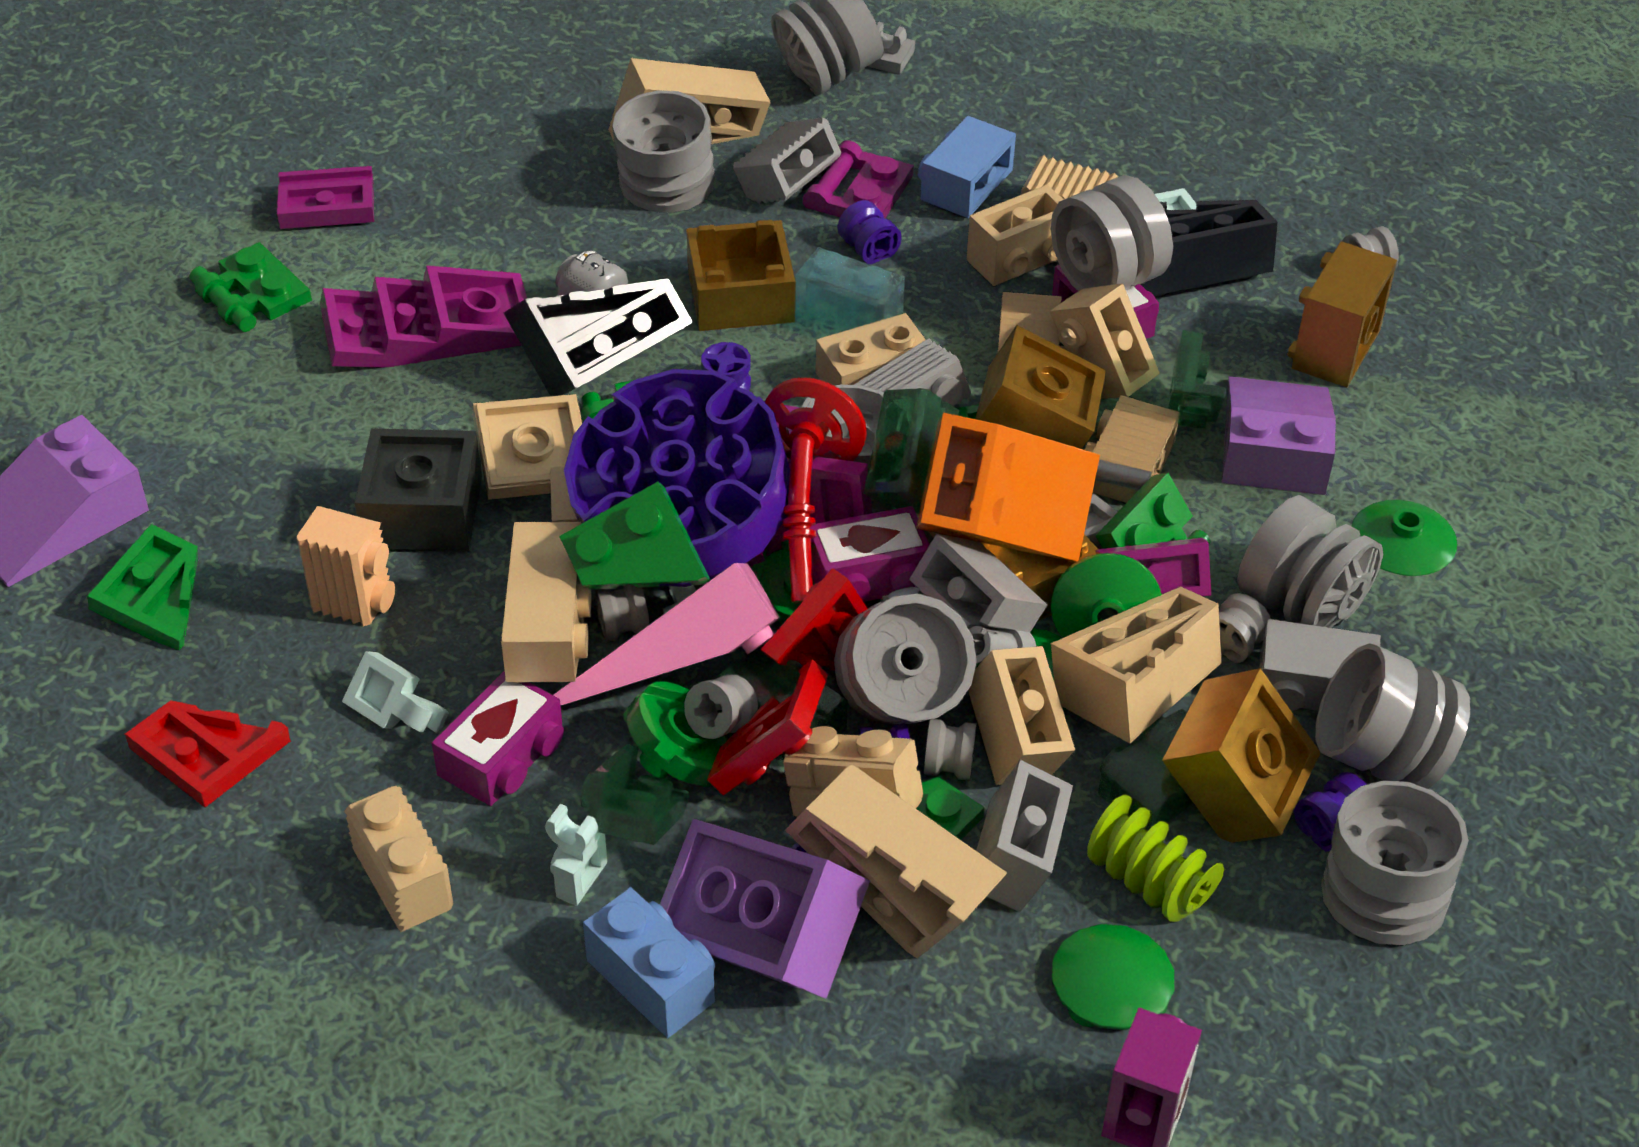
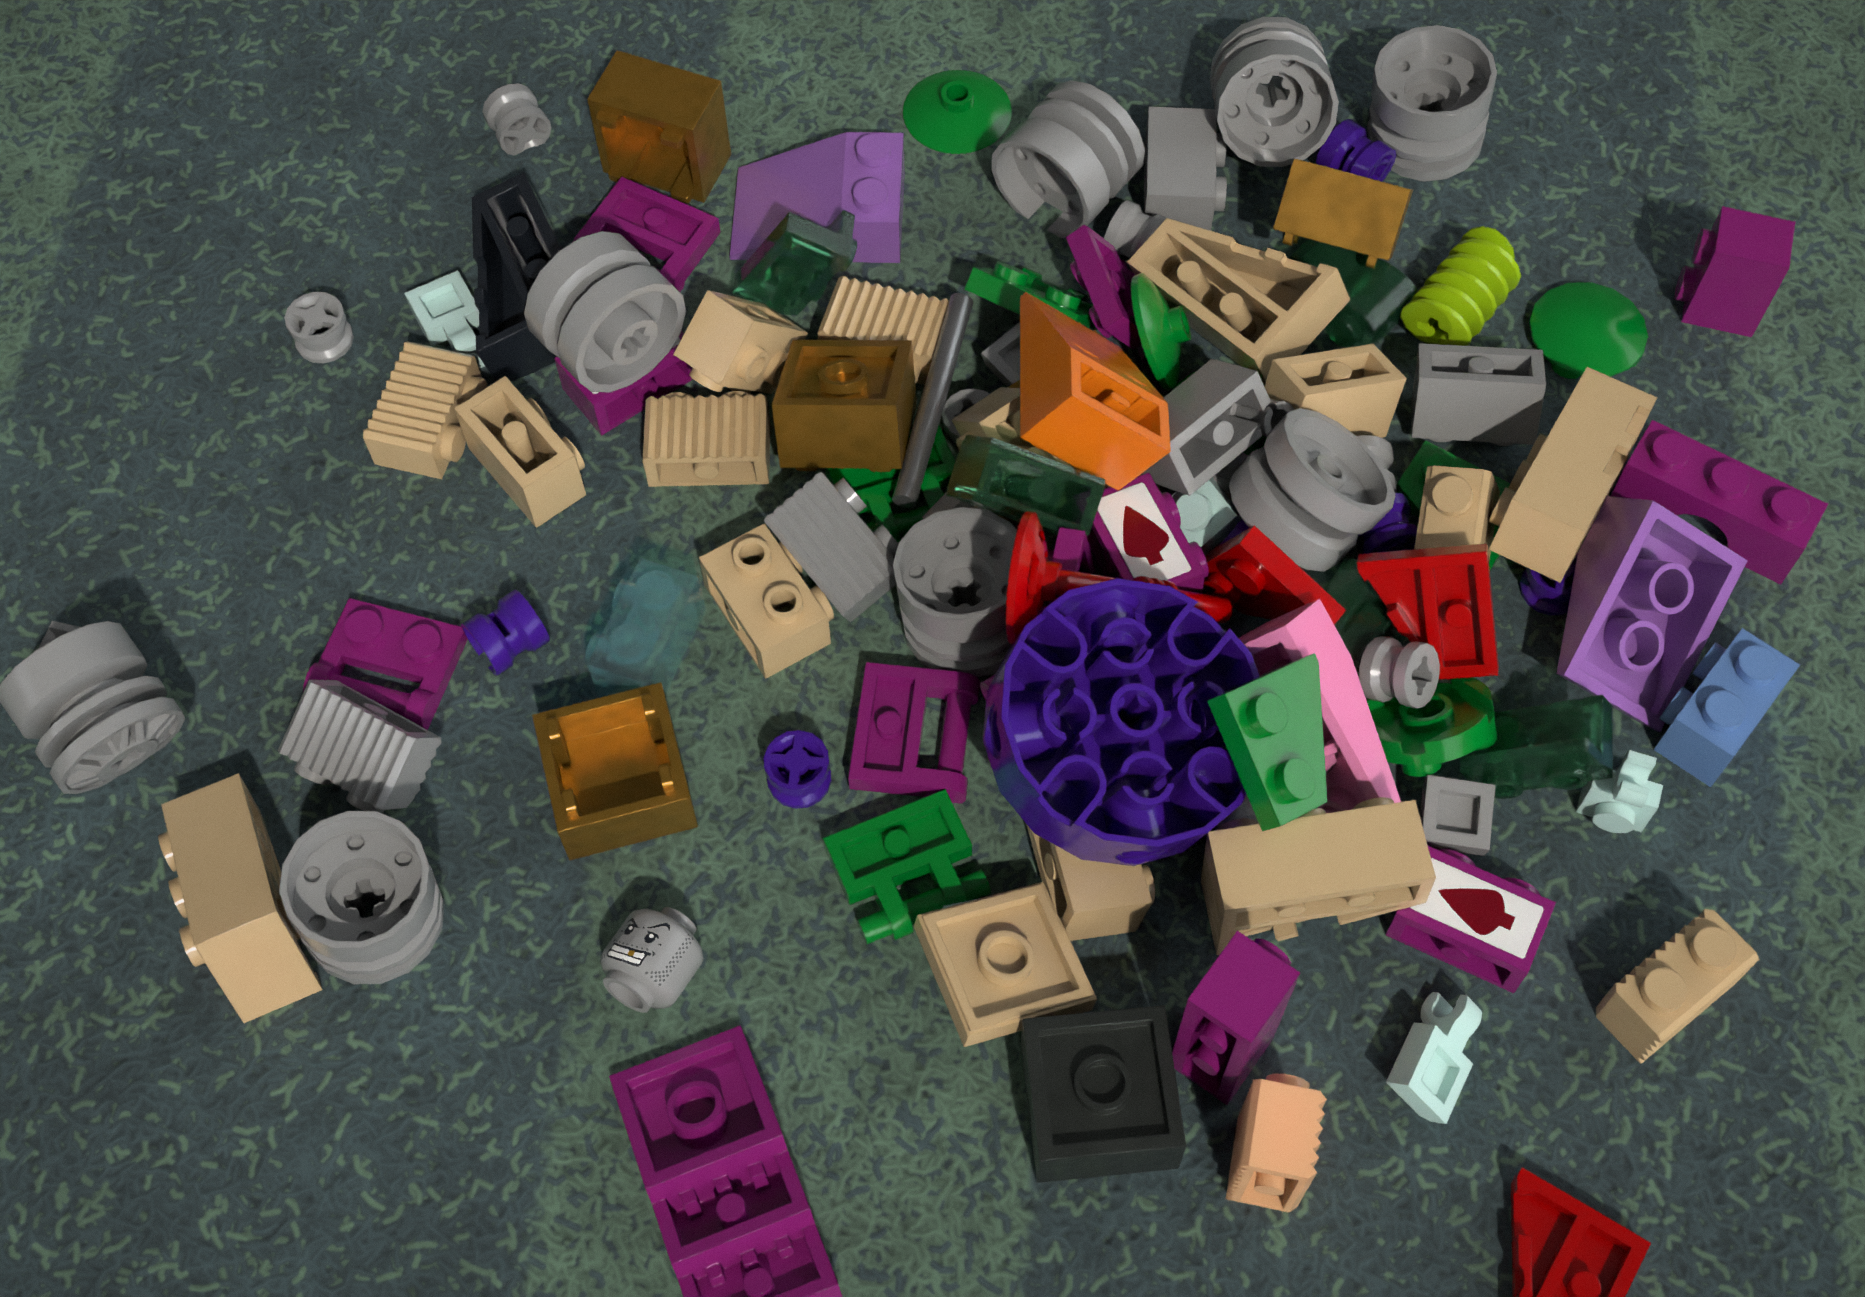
camera: 95 degrees left, 15 degrees up
(436, 532) = (1233, 1015): none -> magenta brick
(587, 738) = (1457, 814): none -> light grey tile
(593, 331) = (770, 919): wedge -> none
(848, 1035) = (1757, 513): none -> magenta arch
(967, 166) = (370, 524): medium blue brick -> none
(1156, 151) = (313, 314): none -> light grey wheel
(1254, 329) = (656, 227): none -> magenta plate

